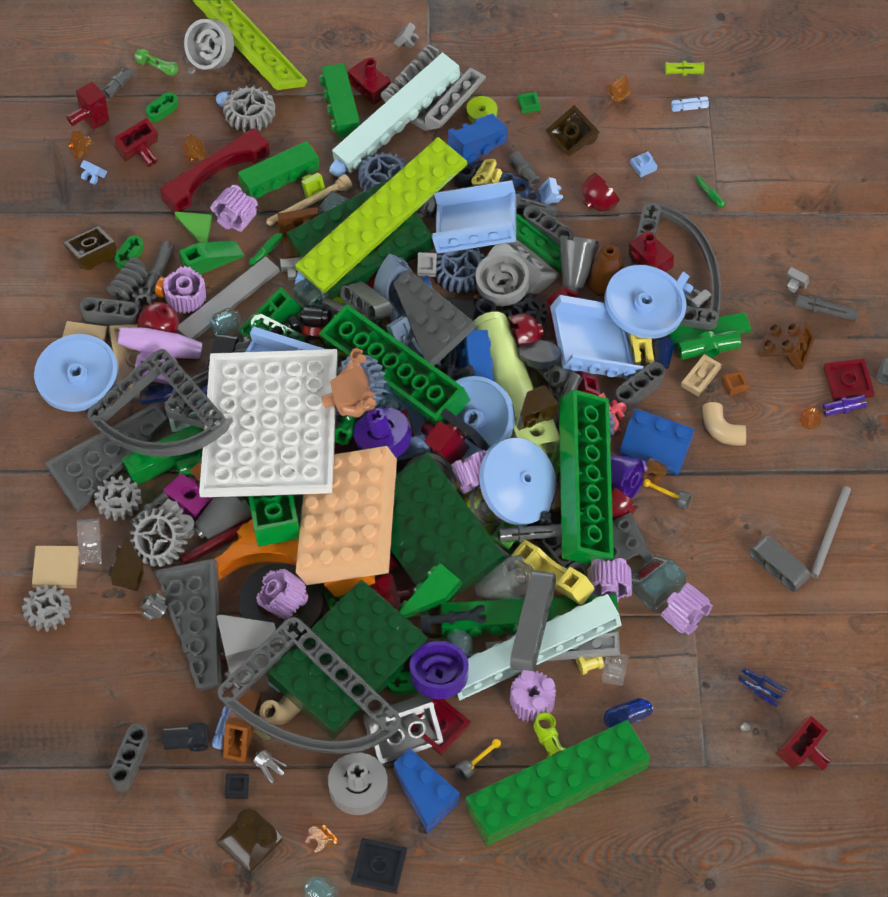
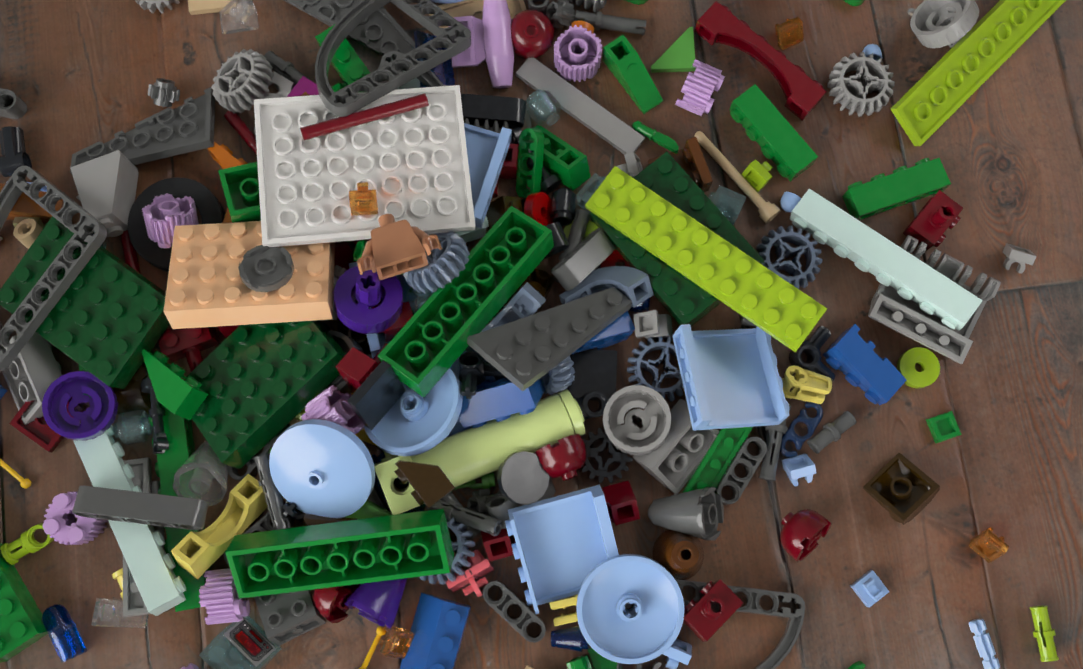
camera: 85 degrees right, 20 degrees up
(116, 501) = (293, 42): light grey gear -> none
(128, 567) = (207, 57): dark brown slope -> none
(230, 414) = (364, 116): none -> dark red piece
(306, 412) = (363, 200): none -> clear orange tile
(351, 488) = (266, 268): none -> dark grey tile

